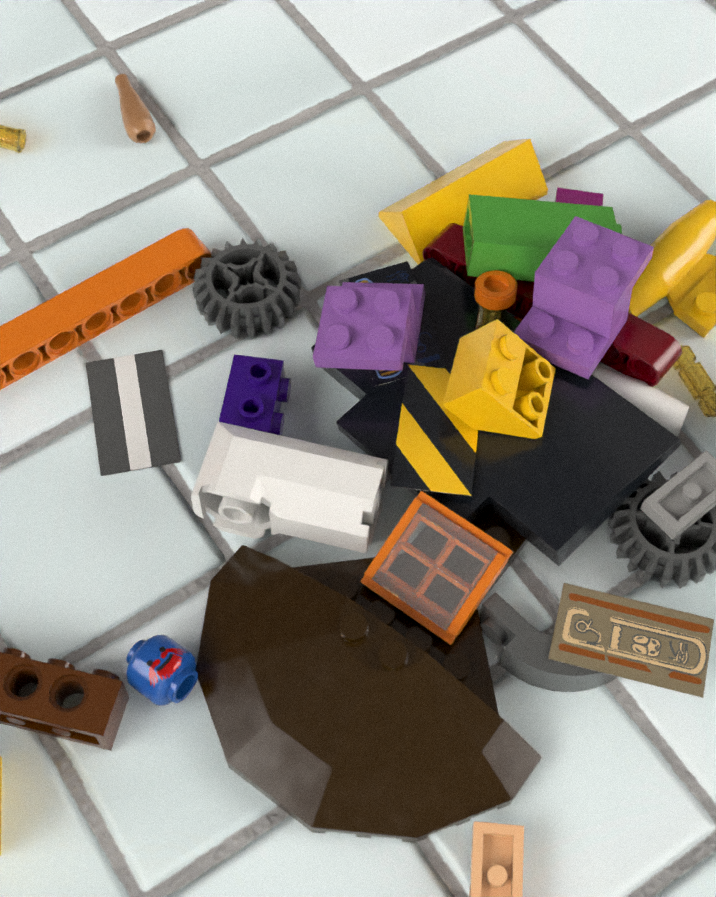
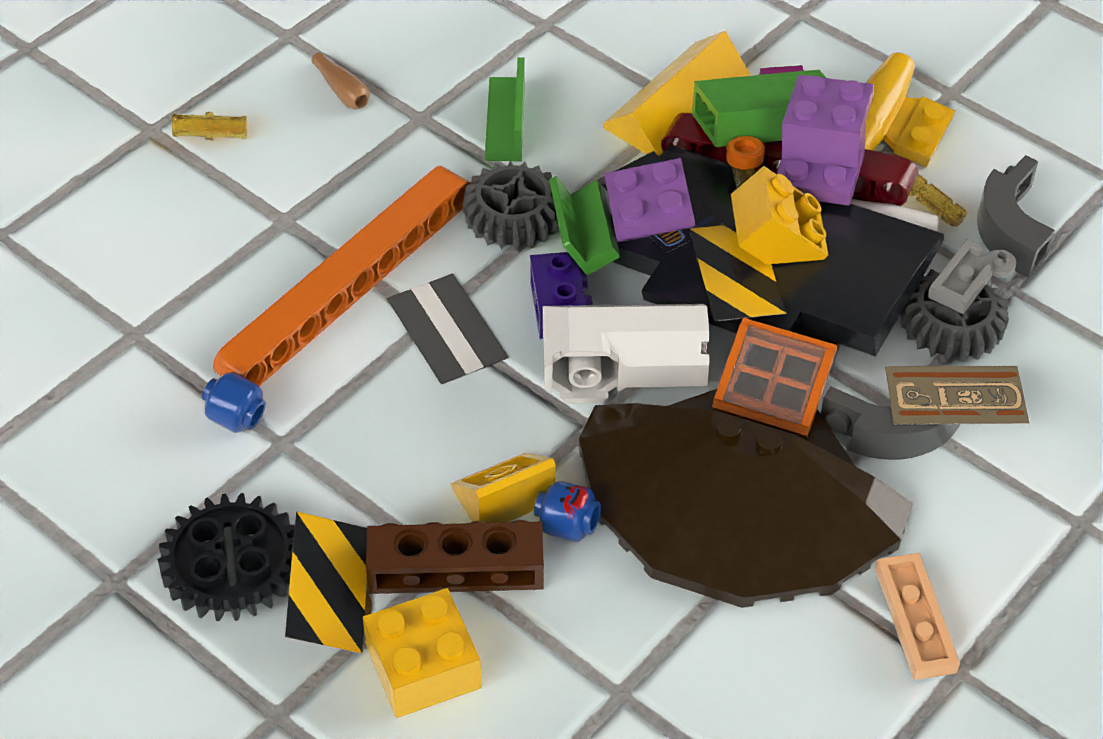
camera: 15 degrees left, 10 degrees down
(108, 621) = (505, 488): none -> yellow slope
(281, 183) = (505, 116): none -> bright green panel
(294, 332) = (585, 225): none -> bright green panel

